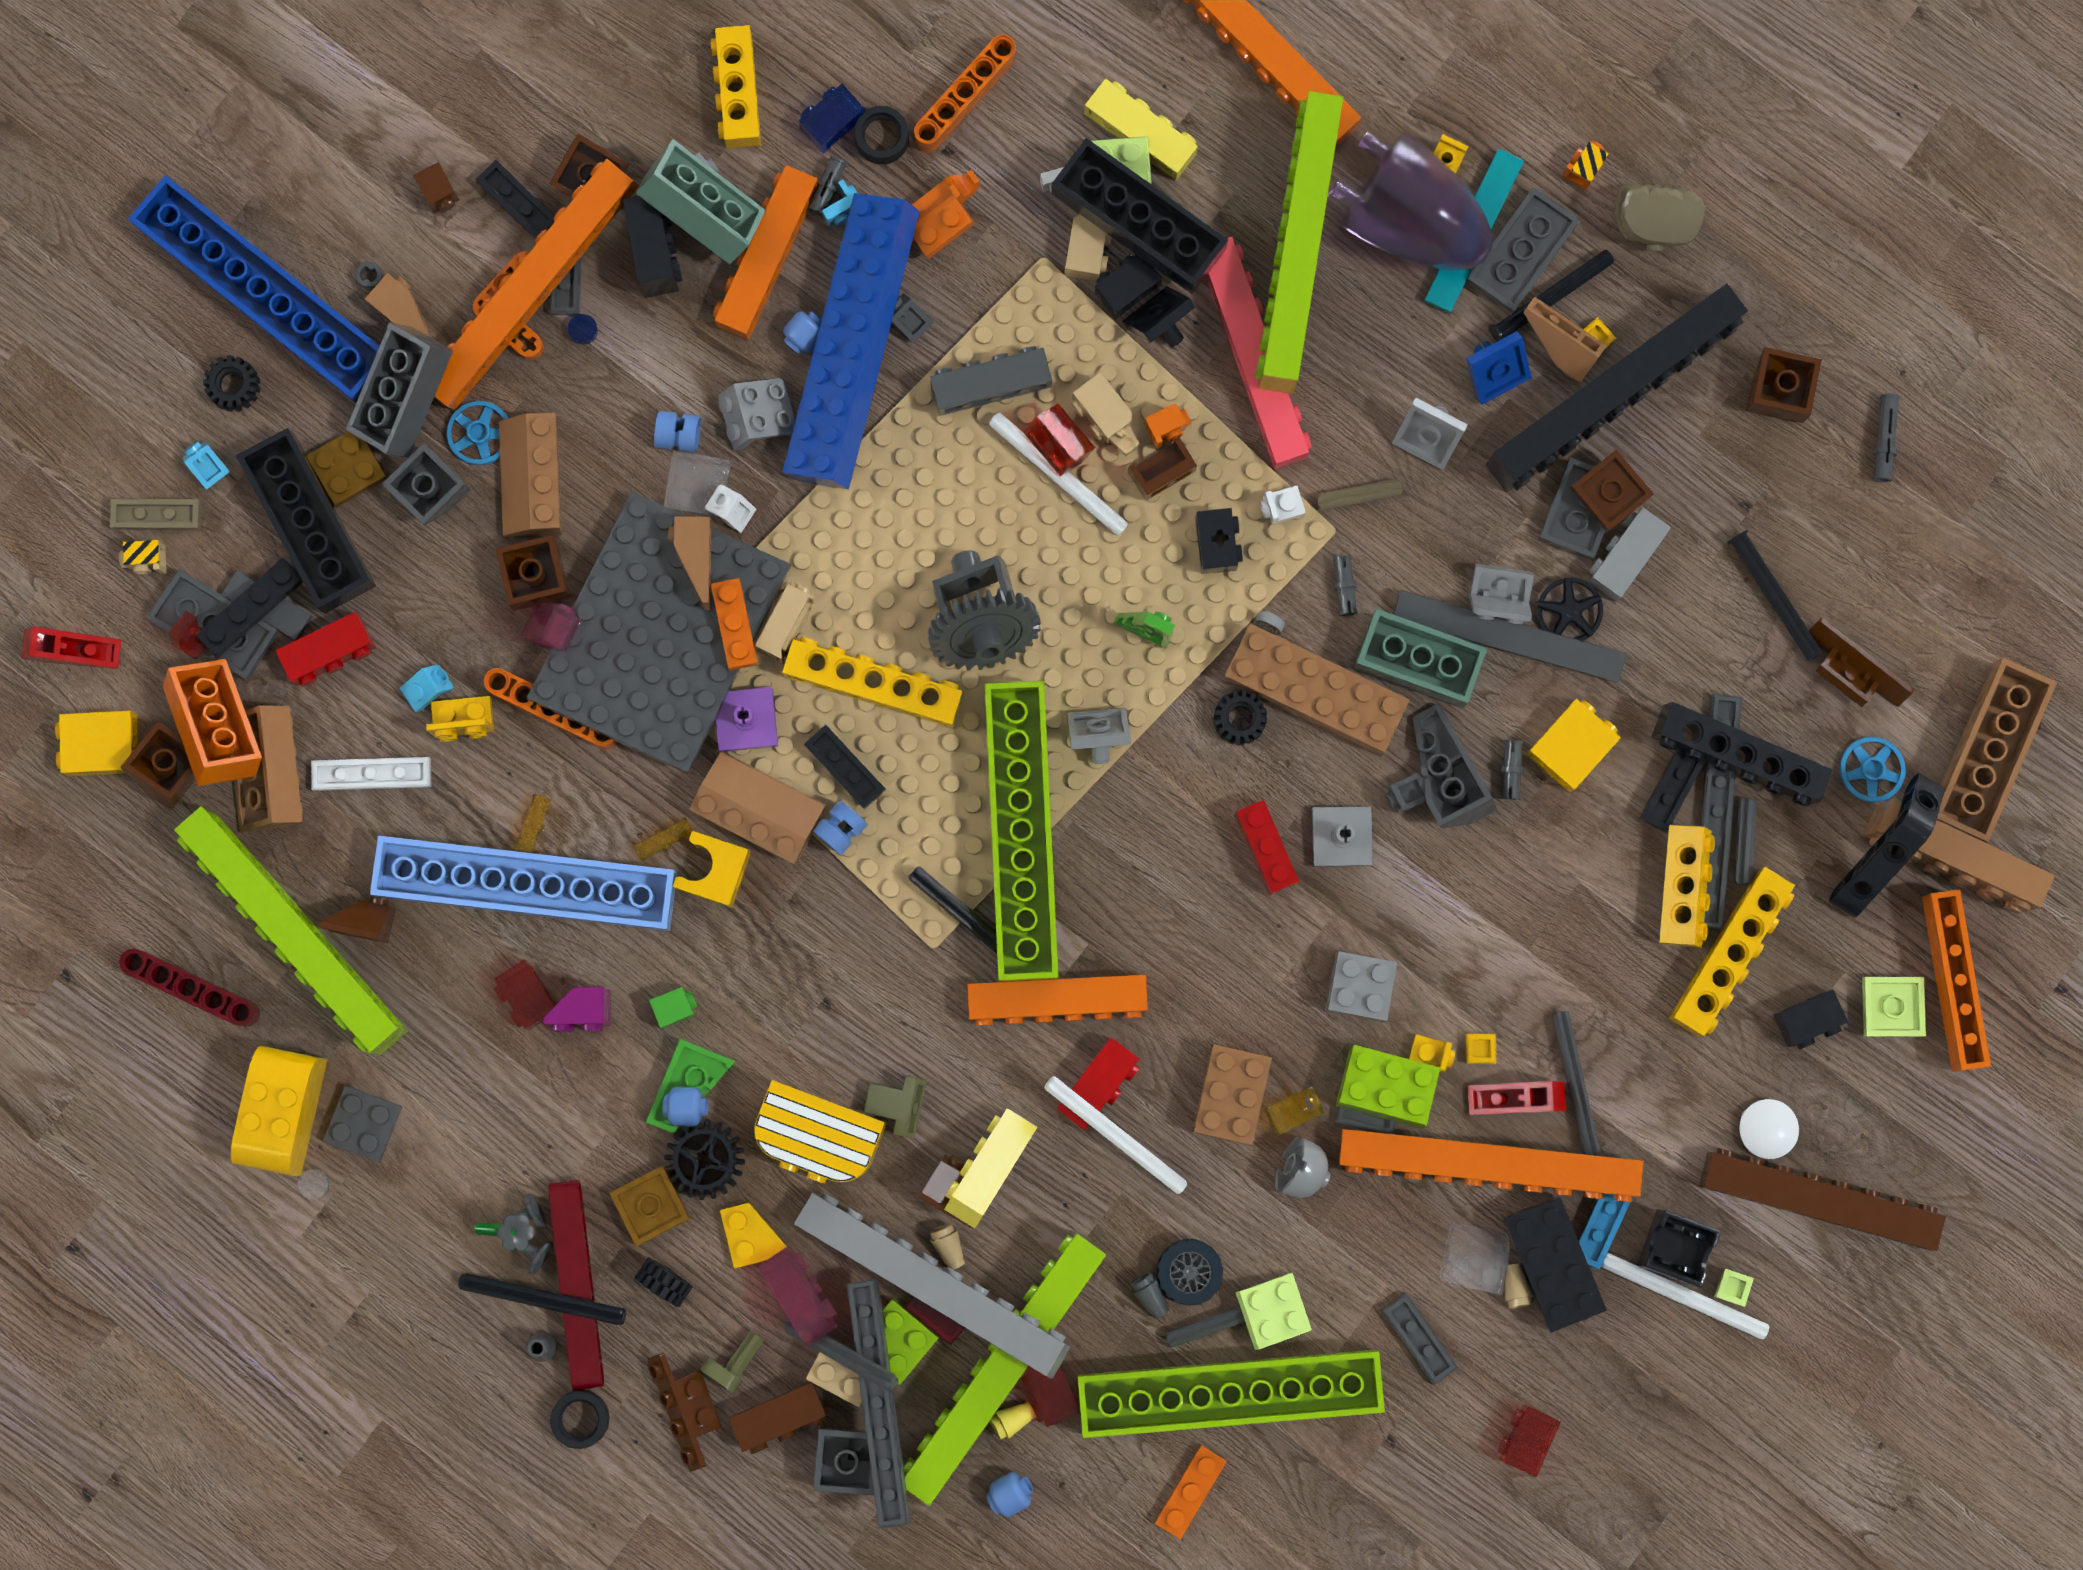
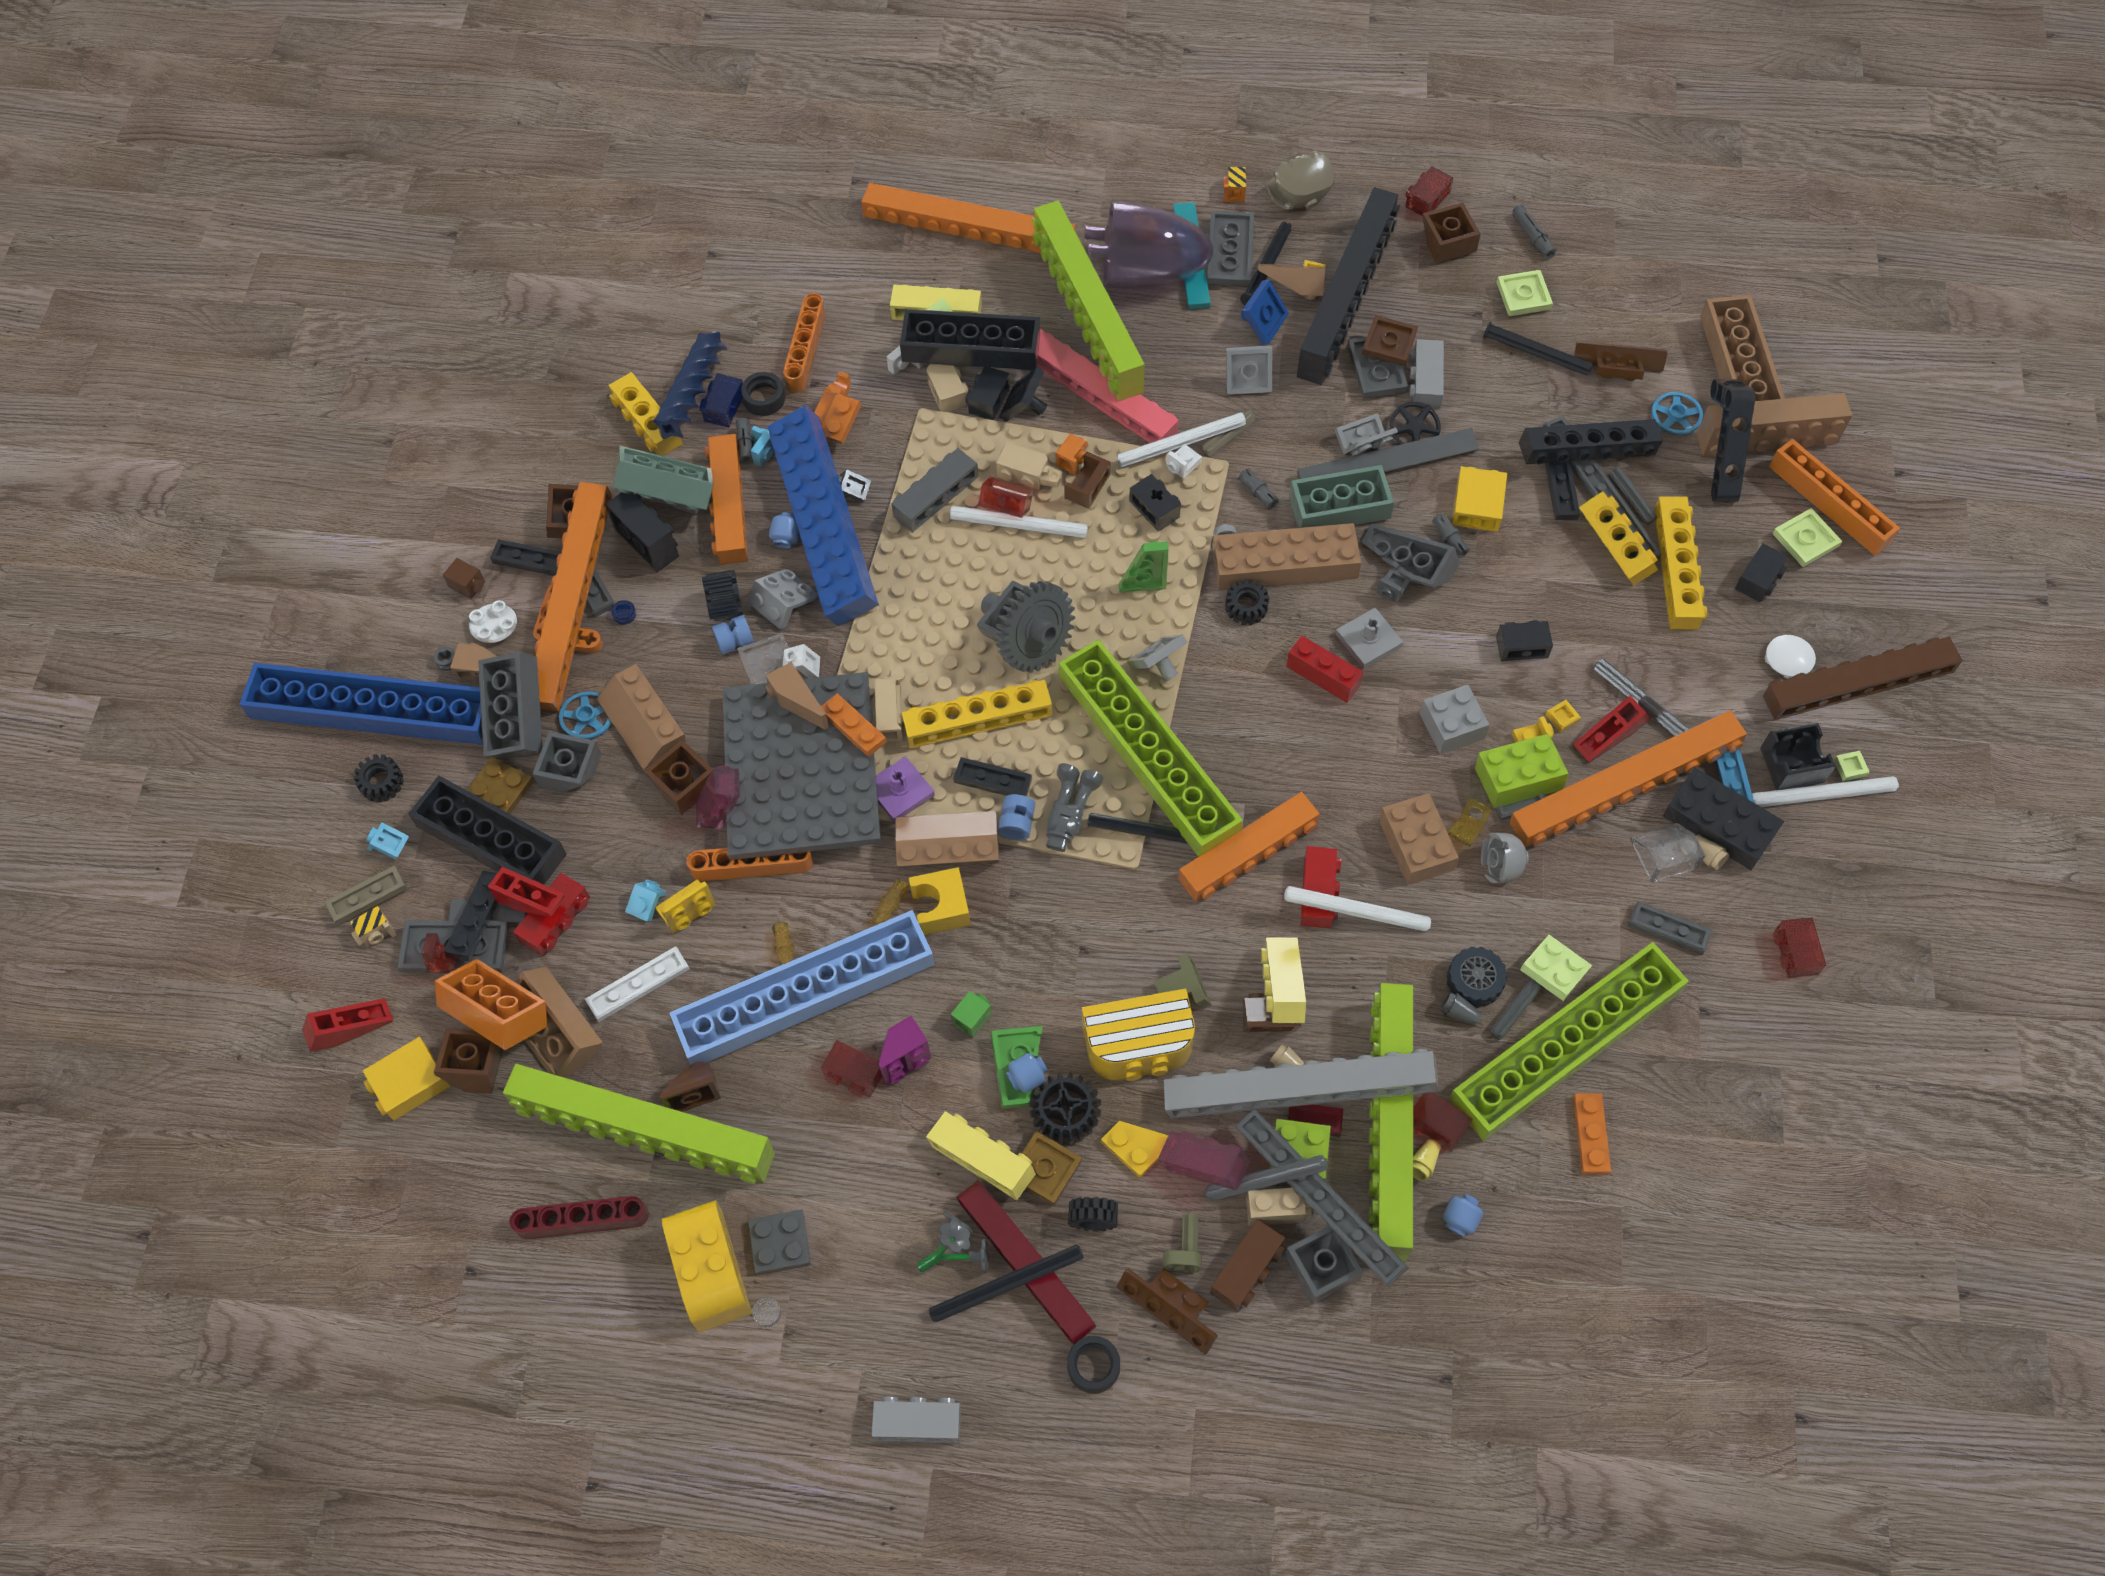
camera: 25 degrees left, 20 degrees down
(306, 621) = (524, 893): none -> red slope
(389, 1371) = (916, 1420): none -> light grey brick
(439, 261) = (492, 622): none -> white dish
(548, 1343) = (1027, 1333): dark grey cone -> none
(594, 1160) = (981, 1155): none -> light yellow brick
(690, 379) = (722, 595): none -> black brick
(801, 84) = (689, 384): none -> dark blue piece
(889, 858) = (1067, 819): none -> dark grey piece
(1298, 477) = (1178, 440): none -> white axle
(1499, 941) = (1524, 640): none -> black brick
(1803, 310) = (1428, 191): none -> clear red brick
(1814, 513) = (1524, 293): none -> yellowish green plate

